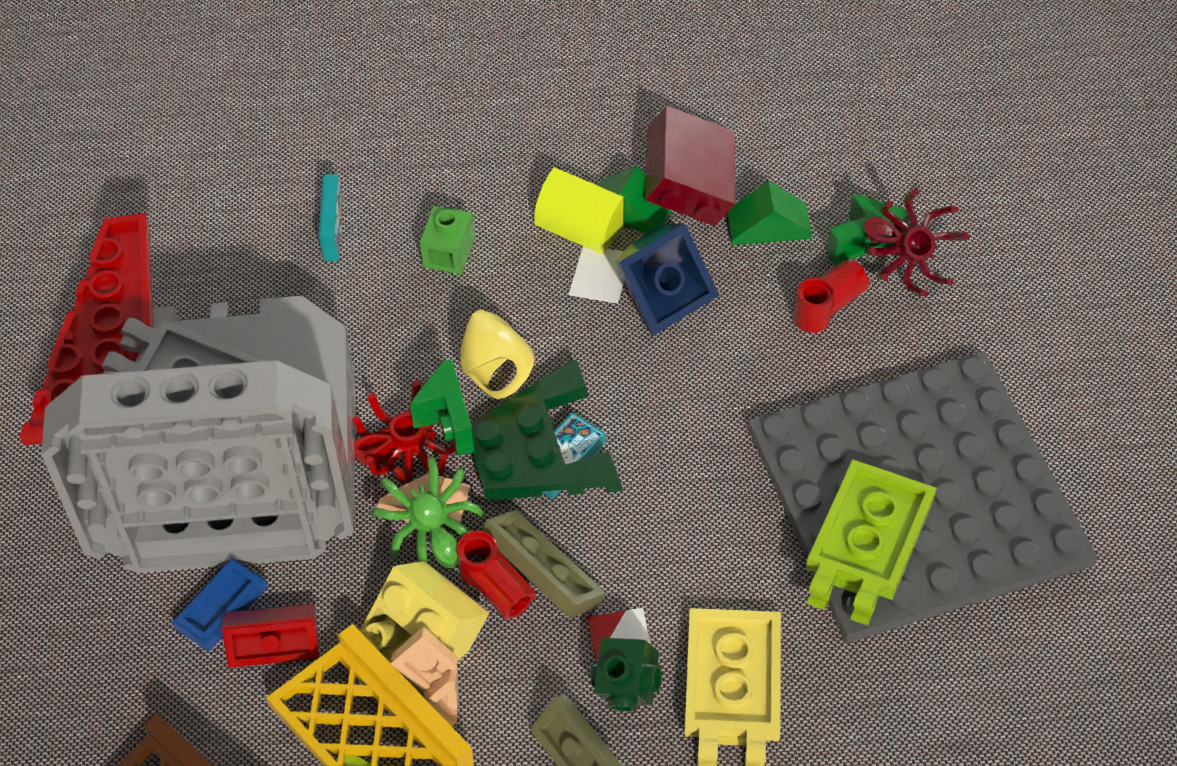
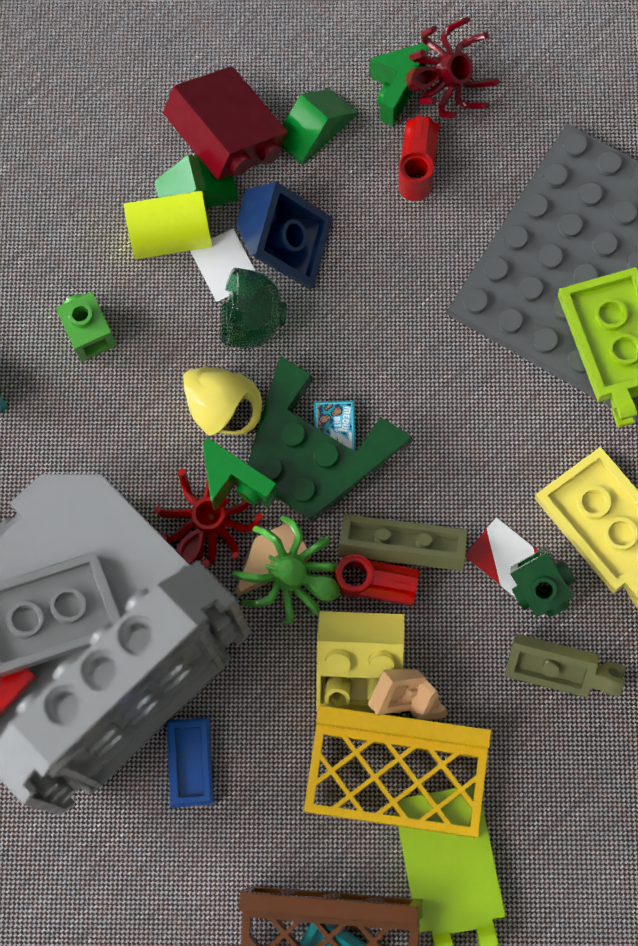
camera: 35 degrees left, 20 degrees up
(270, 635) = (254, 756): red slope -> none
(583, 309) = (251, 310): none -> clear green cylinder

